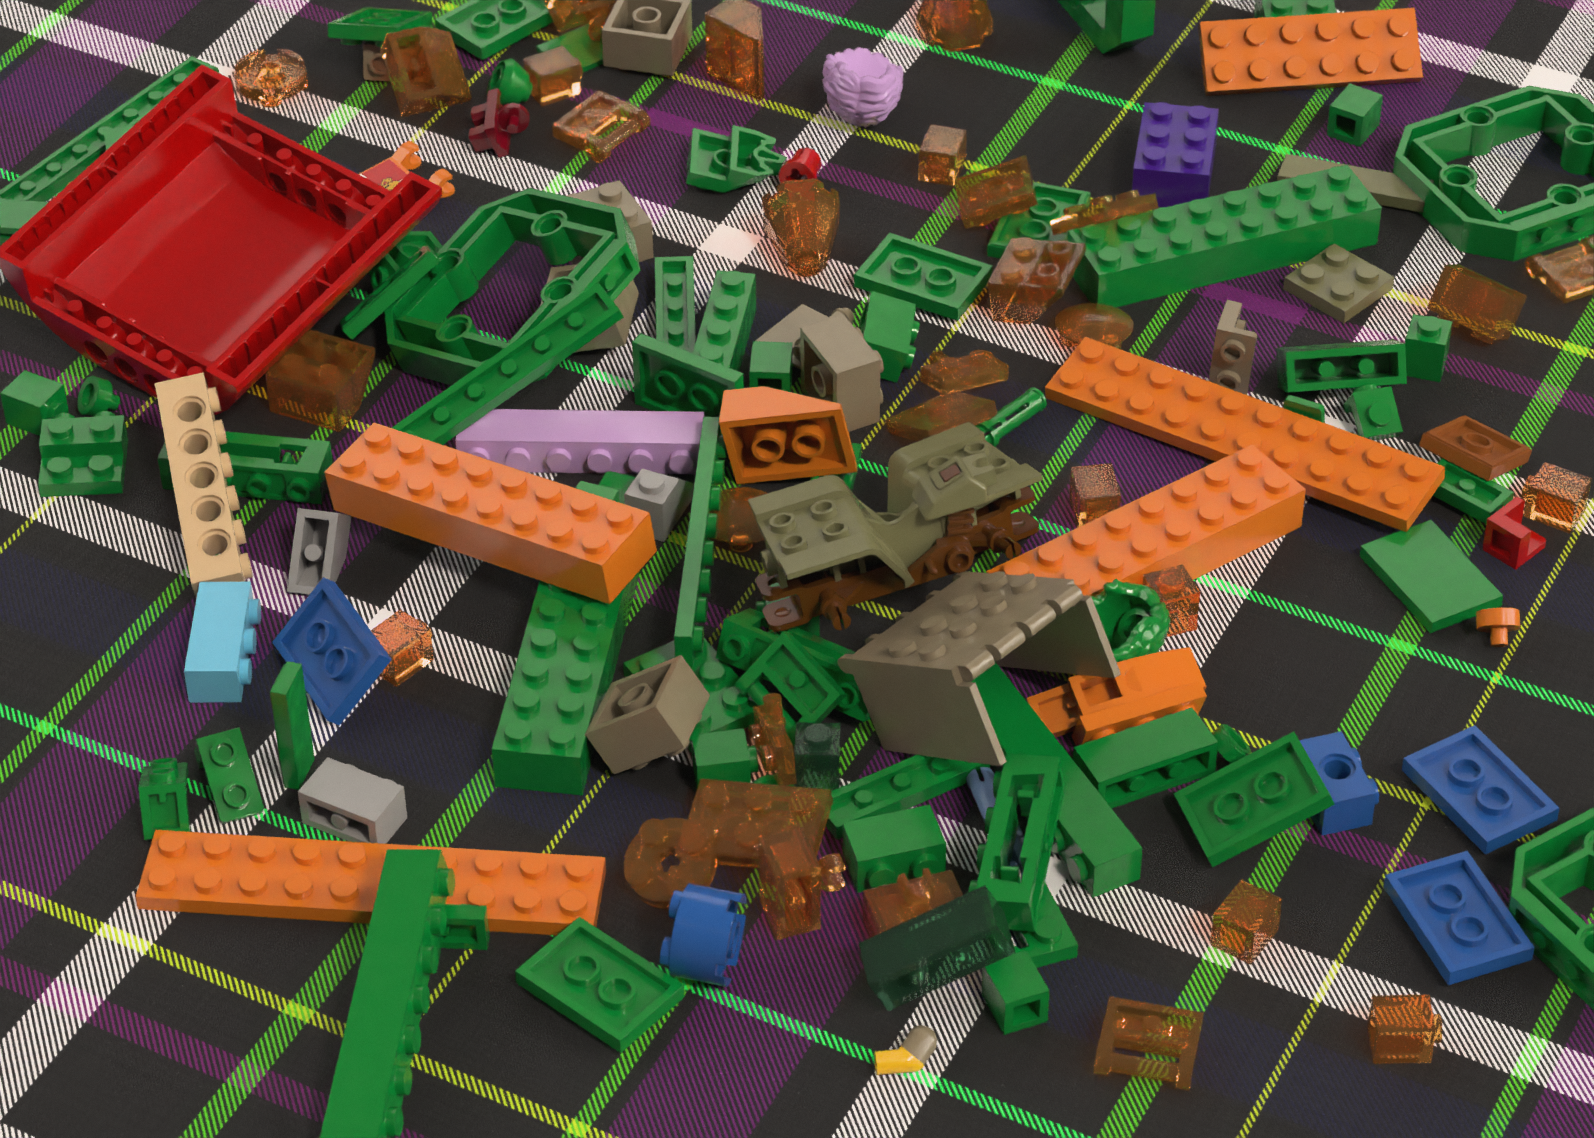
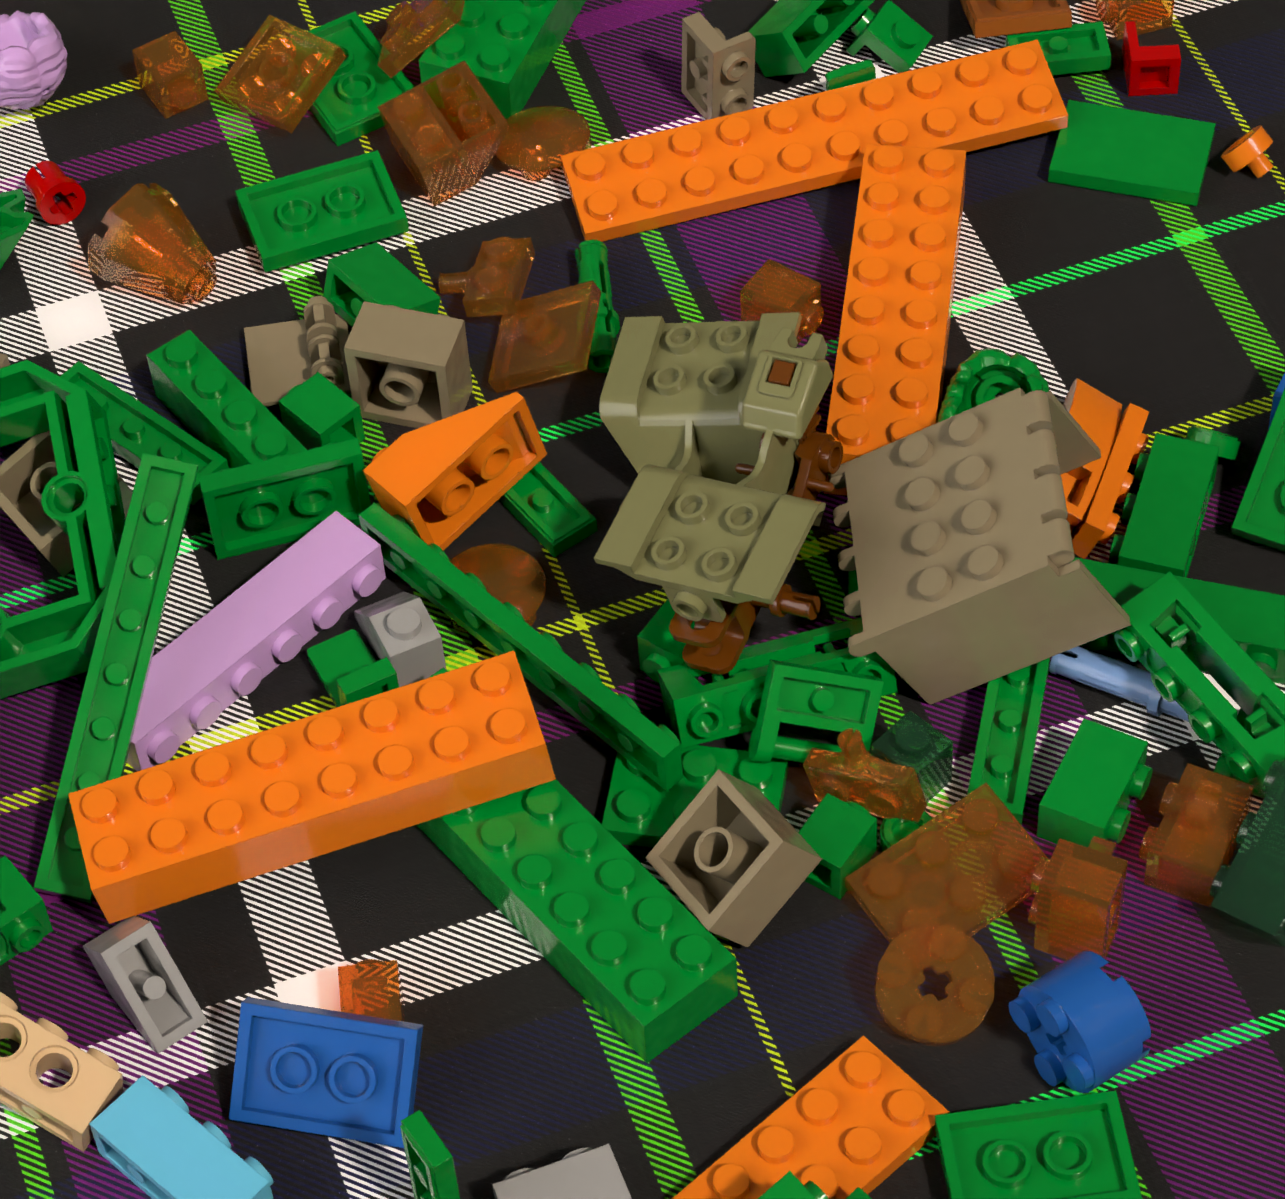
camera: 45 degrees left, 10 degrees up
(1180, 596) = (984, 330): clear orange brick -> none

